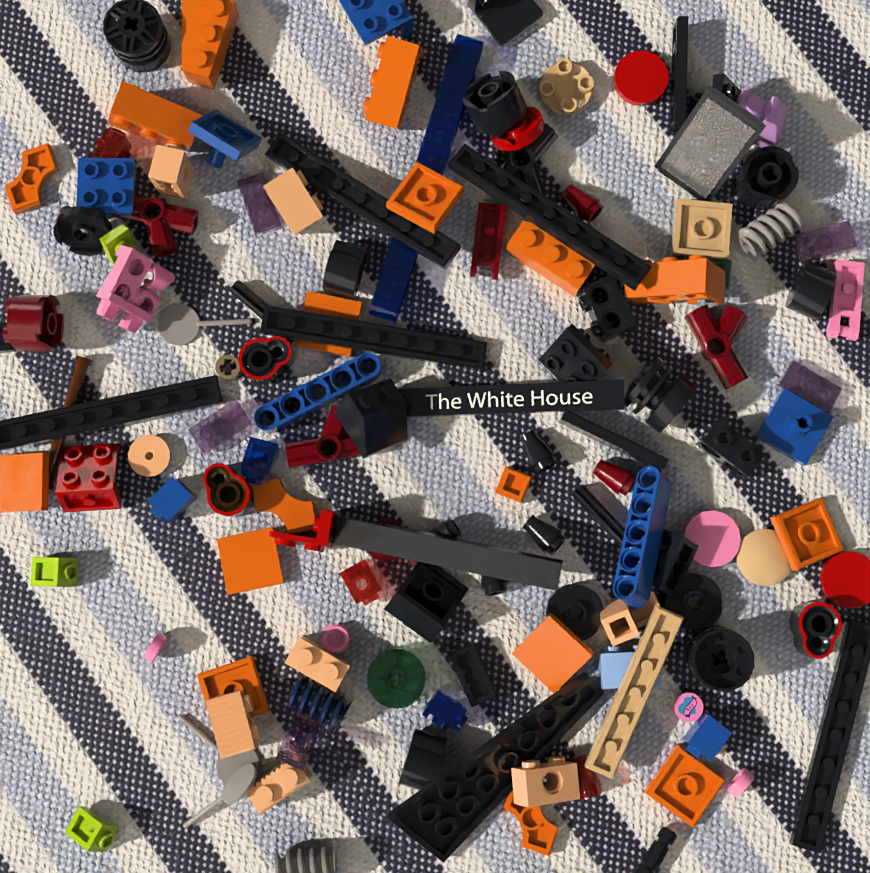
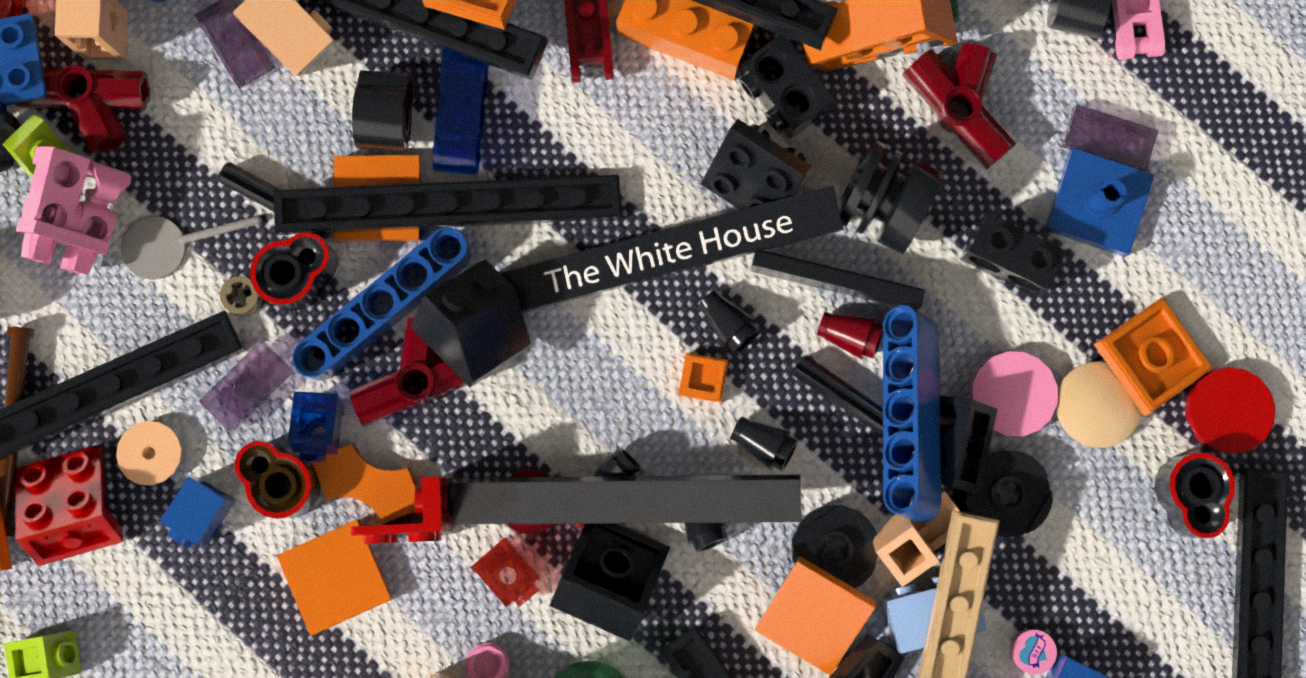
camera: 10 degrees left, 0 degrees up
(732, 670) = (1091, 575): black wheel -> none

